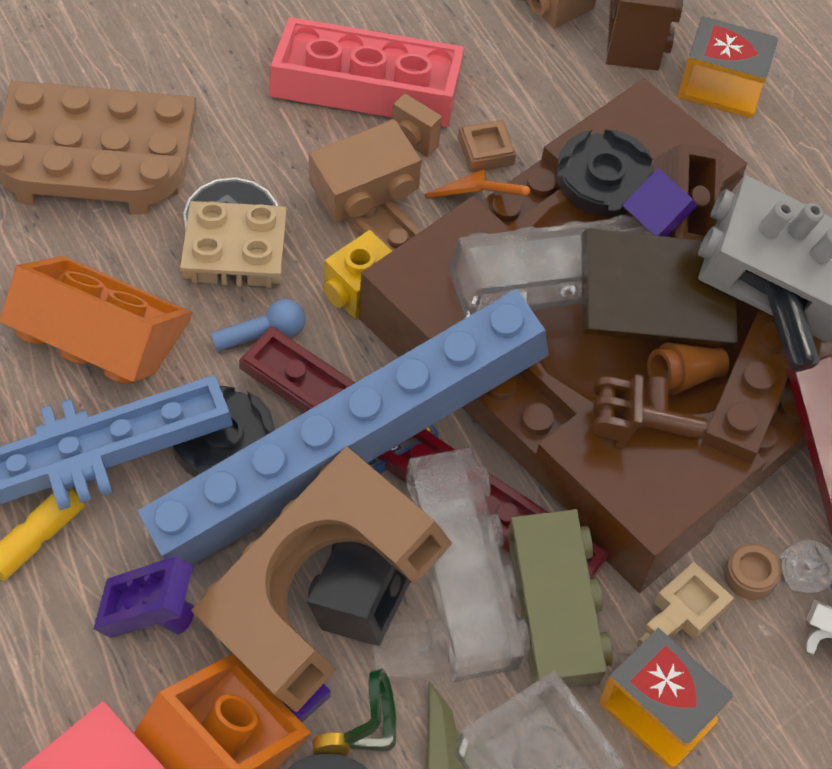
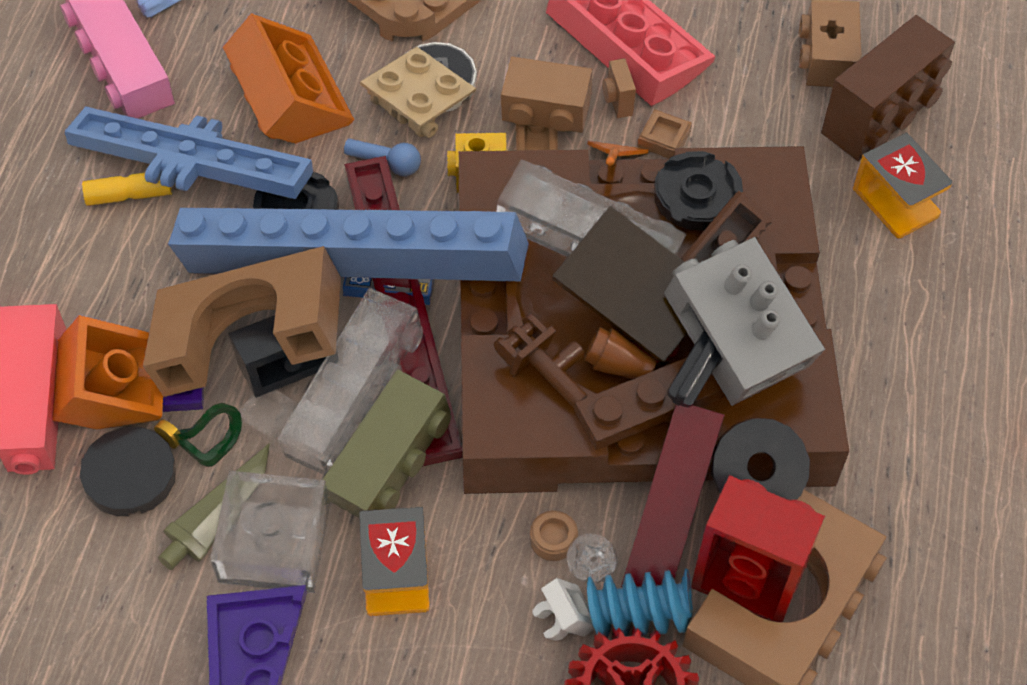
camera: 45 degrees right, 0 degrees up
(147, 598) = (142, 268): dark purple tile -> none
(660, 204) = (688, 226): dark purple tile -> none
(689, 603) = (482, 520): tan plate -> none

